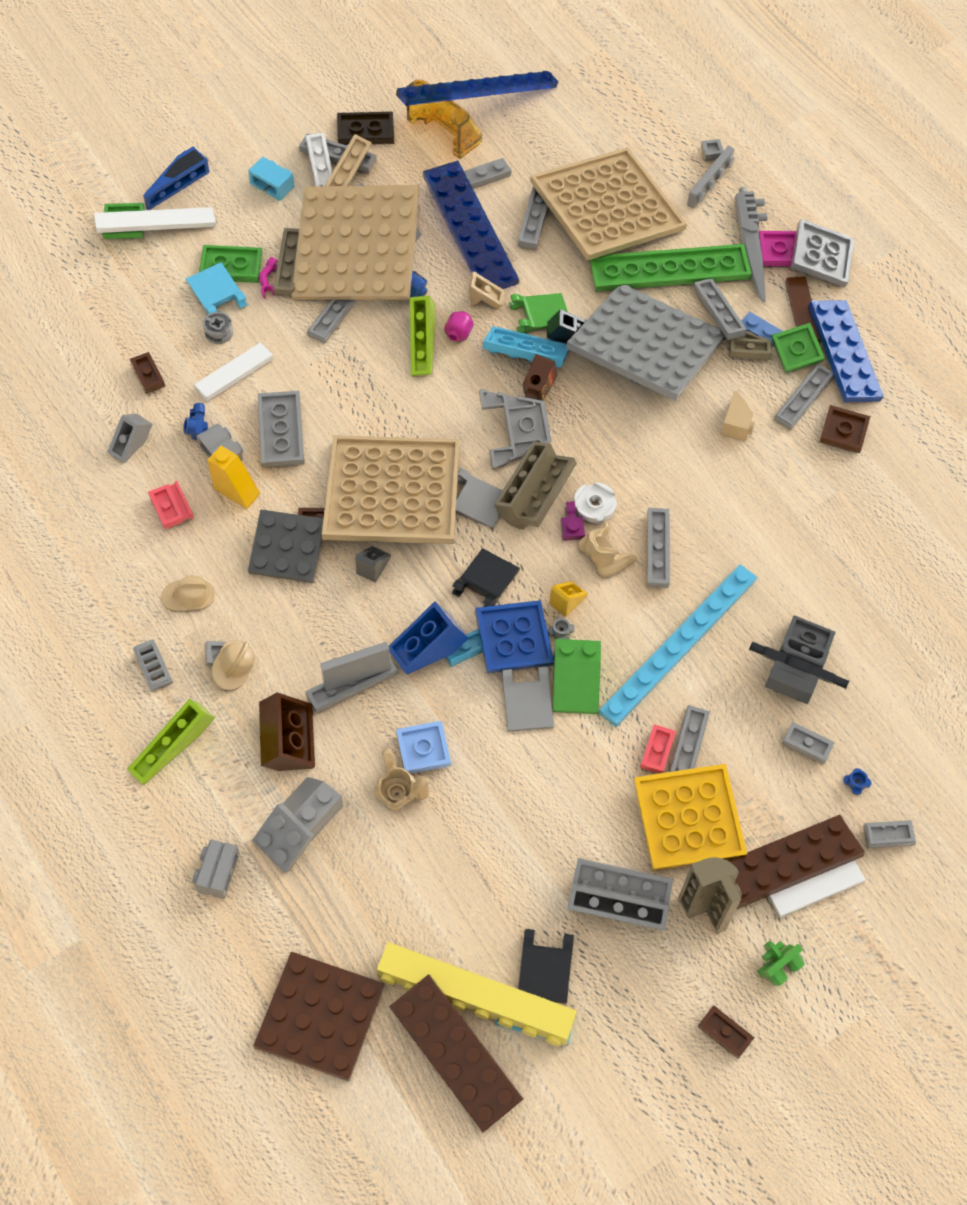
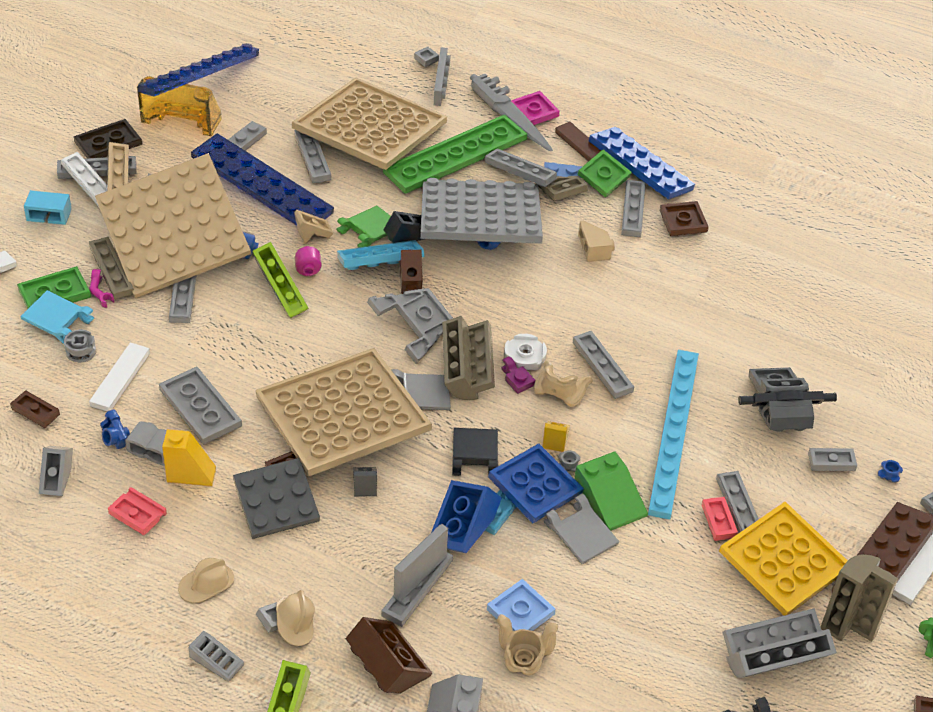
camera: 30 degrees left, 15 degrees down
(822, 253) = (572, 99): light grey plate -> none

